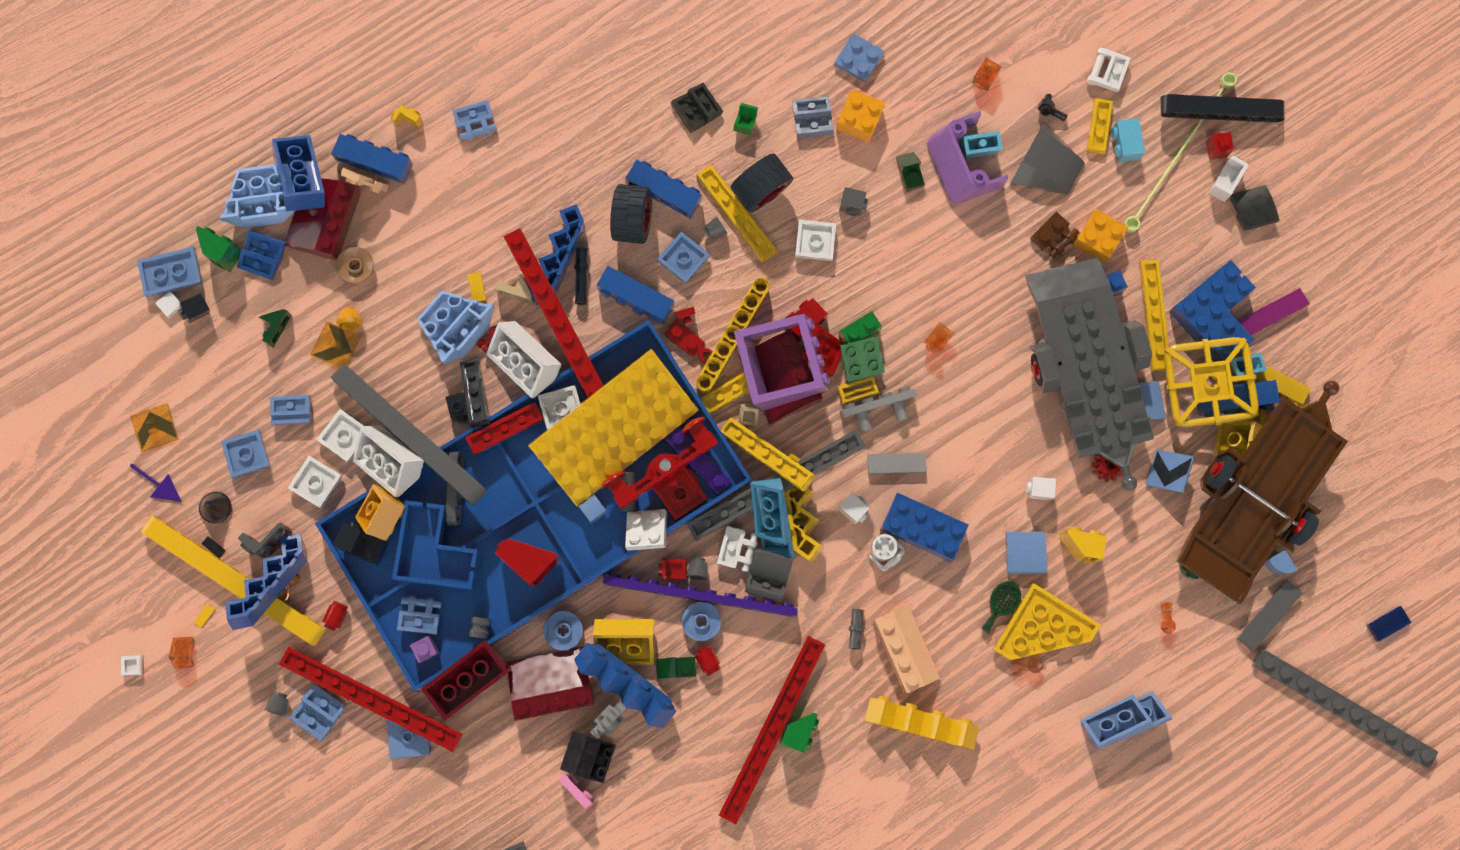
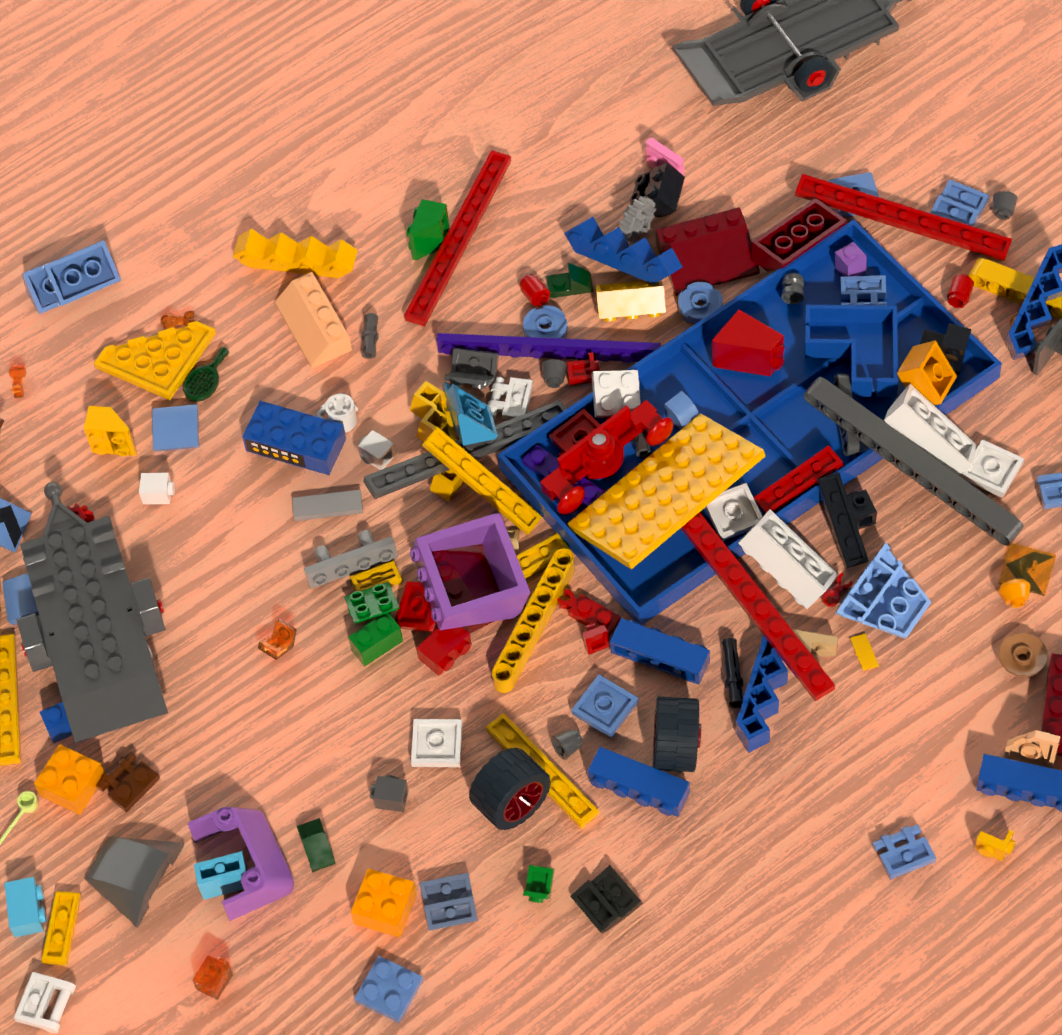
camera: 175 degrees left, 20 degrees down
(315, 482) = (1015, 418): white plate -> none
(1047, 107) = (131, 941): black piece -> none

